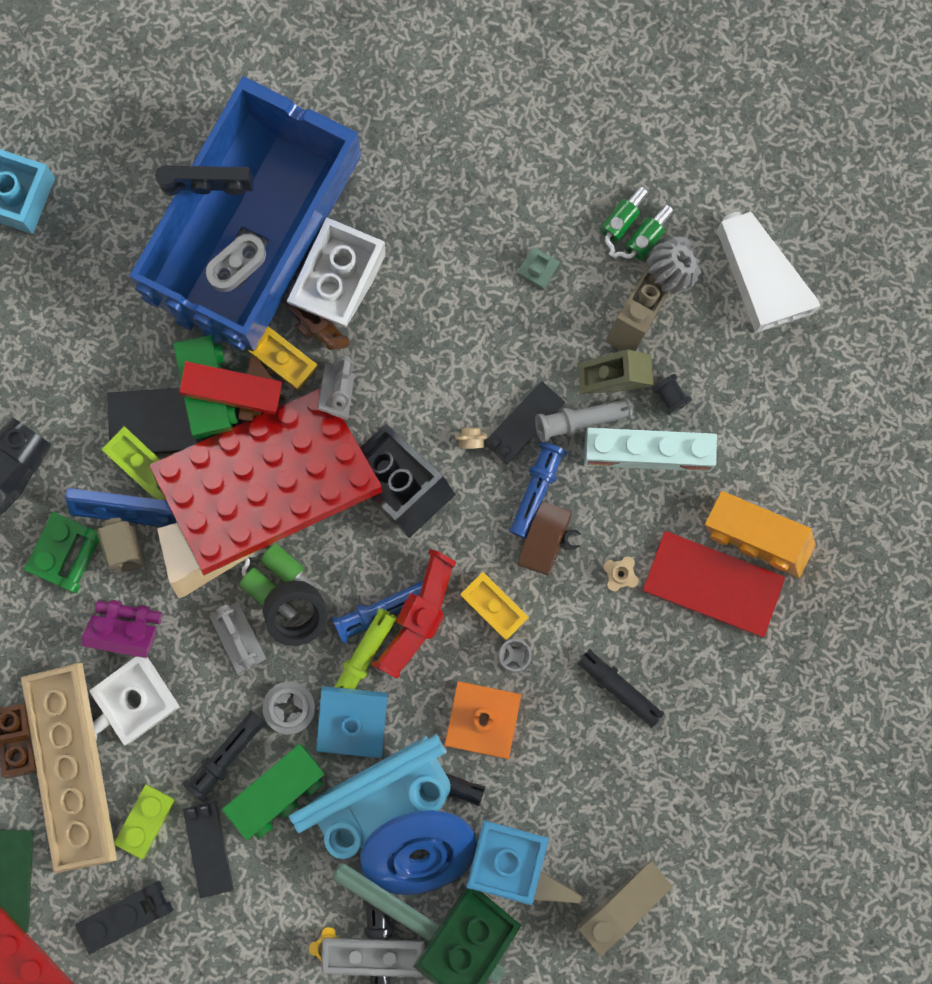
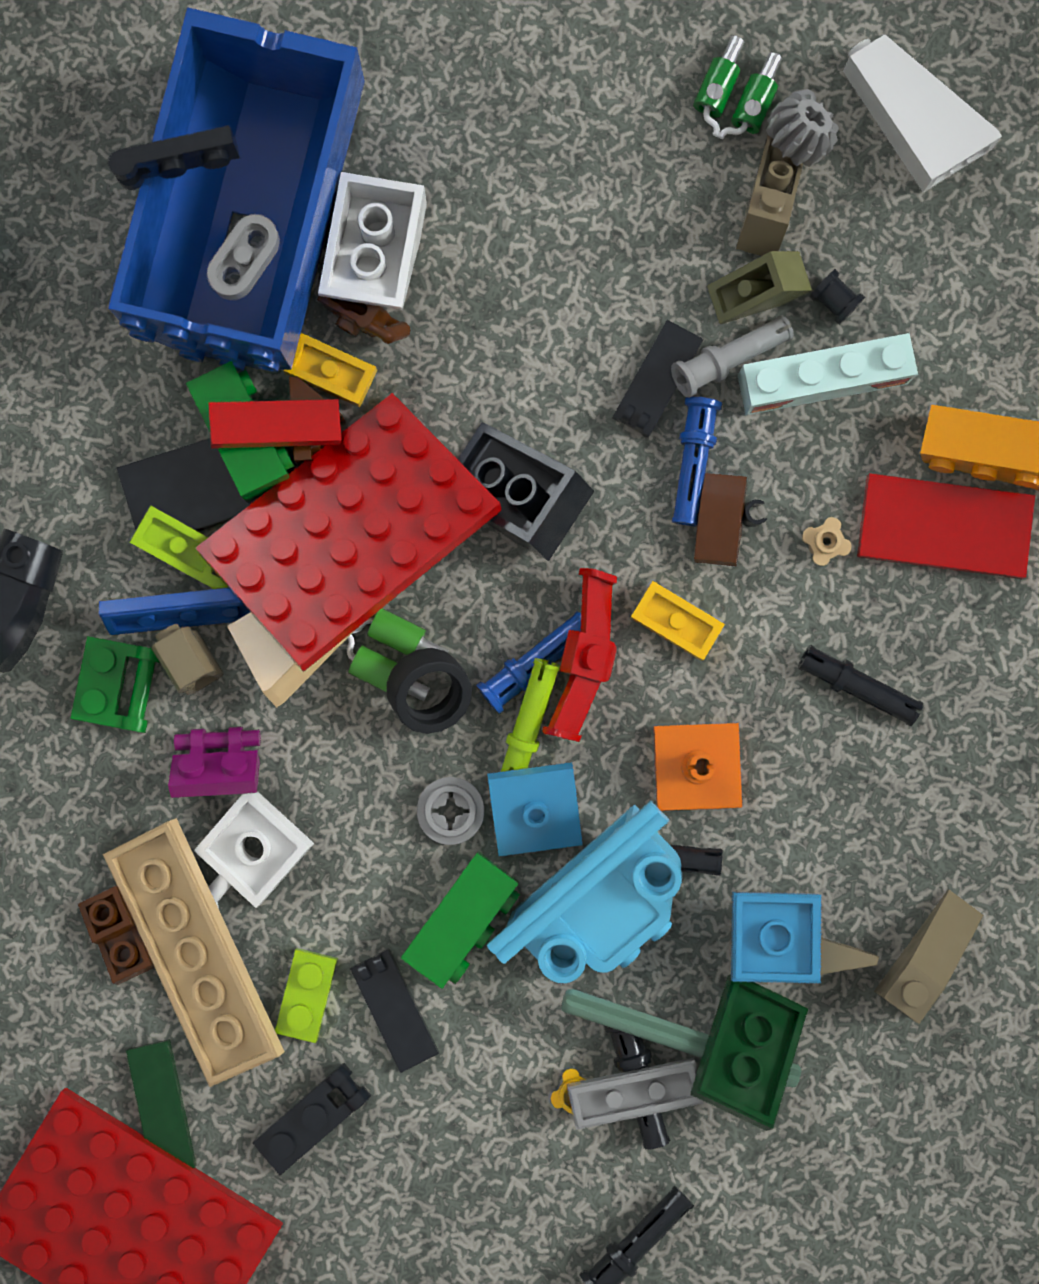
camera: 10 degrees left, 5 degrees up
(214, 768) = (376, 907): black pin -> none
(237, 637) = (363, 738): light grey hinge -> none
(337, 388) = (409, 390): light grey hinge -> none
(388, 849) = (623, 961): blue piece -> none
(471, 438) = (595, 414): tan plate -> none
(514, 651) = (723, 672): light grey wheel -> none
(538, 268) = (627, 175): sand green tile -> none

